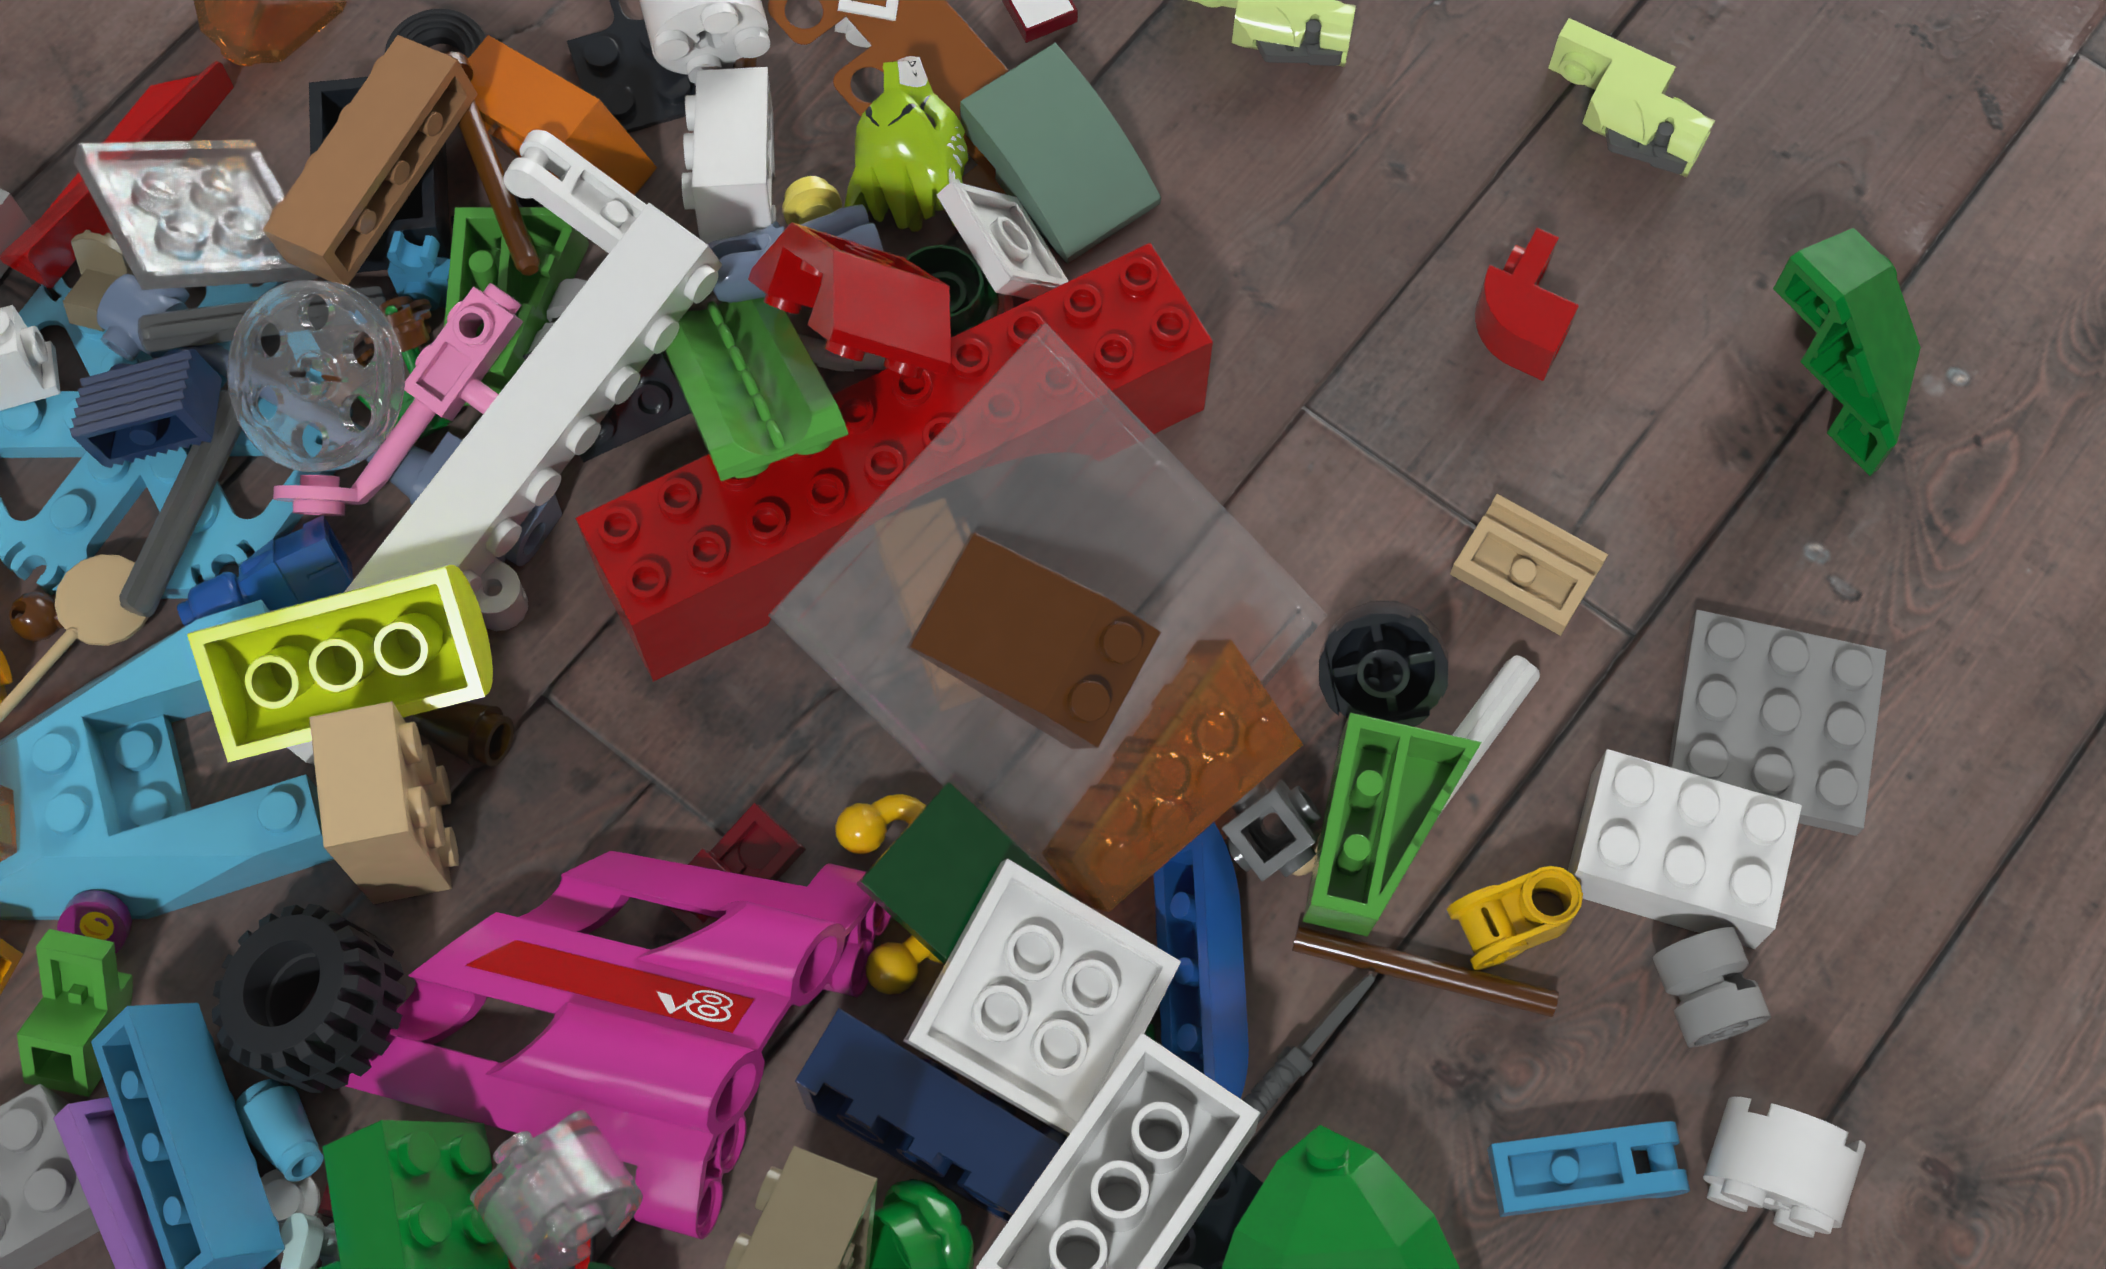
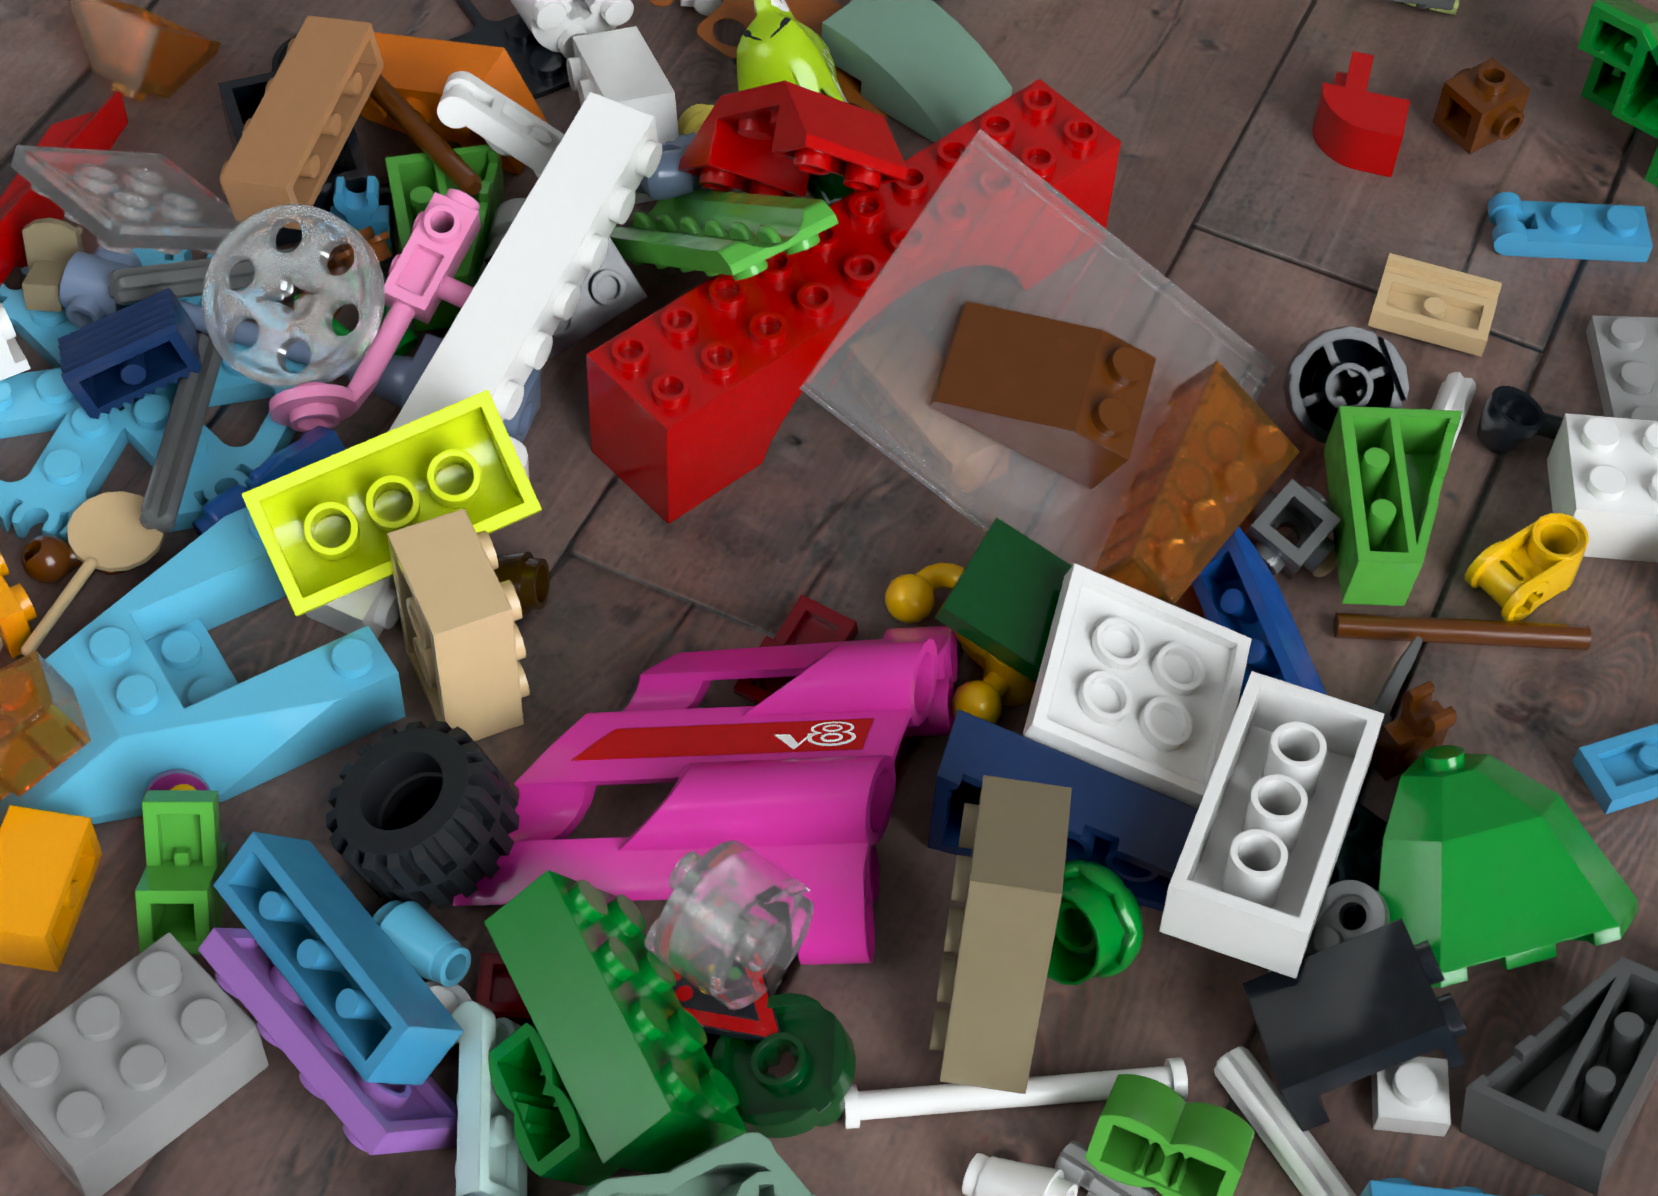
camera: 15 degrees left, 15 degrees down
(1002, 240) = (862, 96): white plate -> none
(1323, 1098) = (1420, 727): none -> reddish brown plate
(1571, 732) = (1512, 419): none -> black bar
(1664, 318) = (1481, 105): none -> reddish brown brick
(1714, 489) = (1568, 230): none -> dark azure plate

